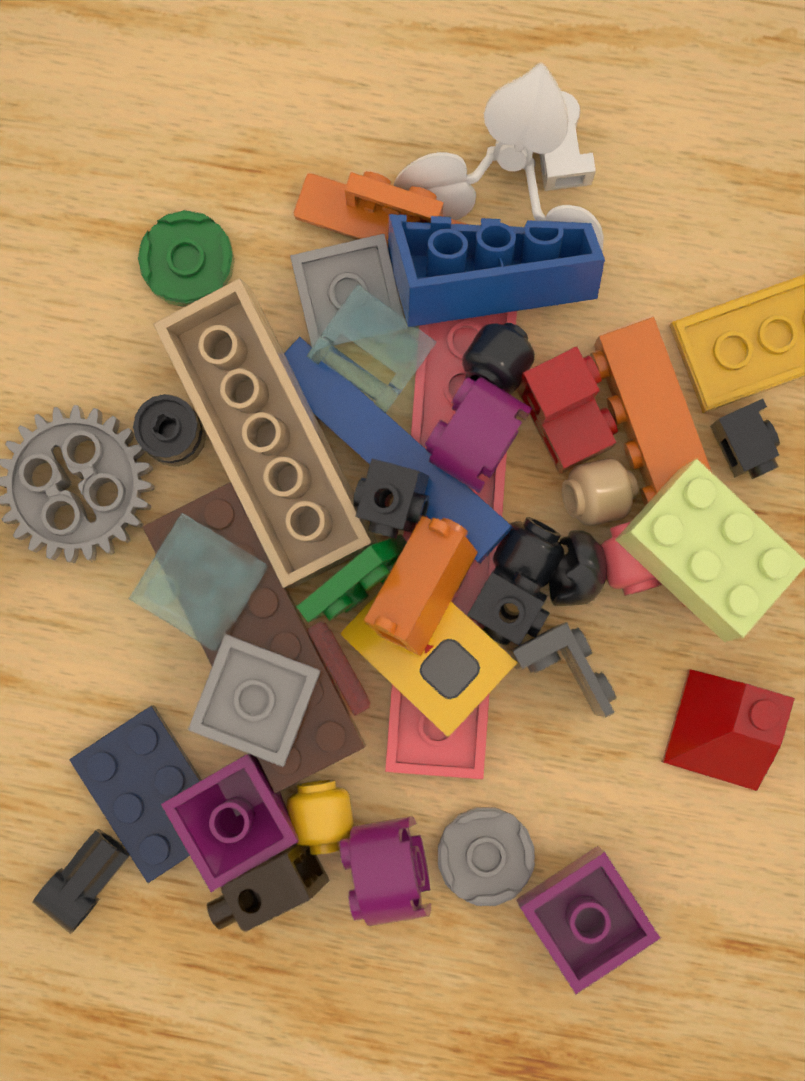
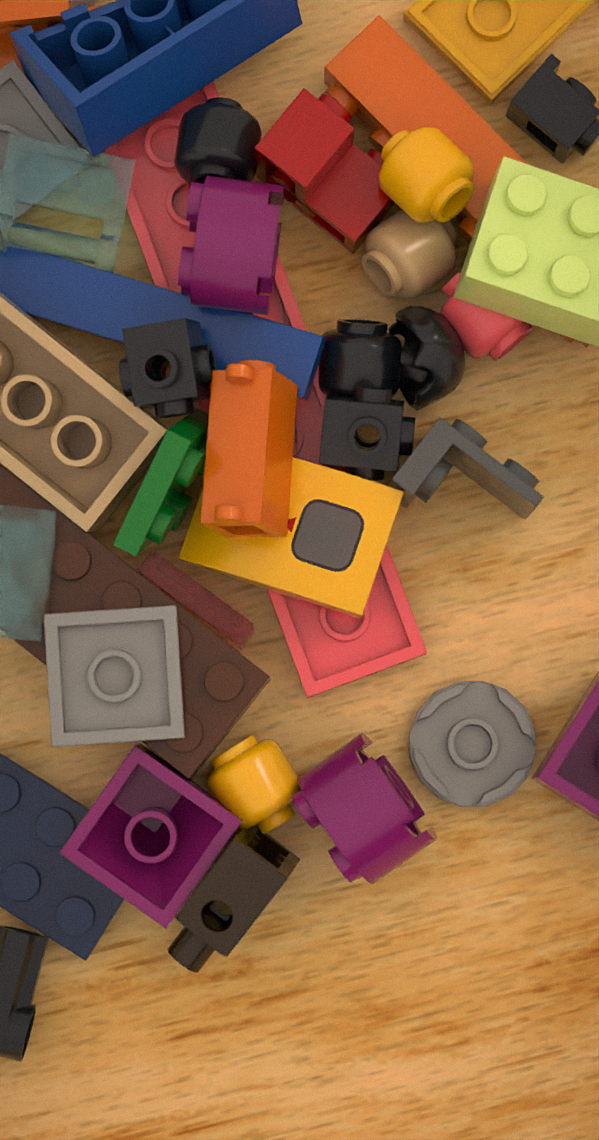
camera: 30 degrees left, 0 degrees up
(635, 445) = (426, 175): none -> yellow head

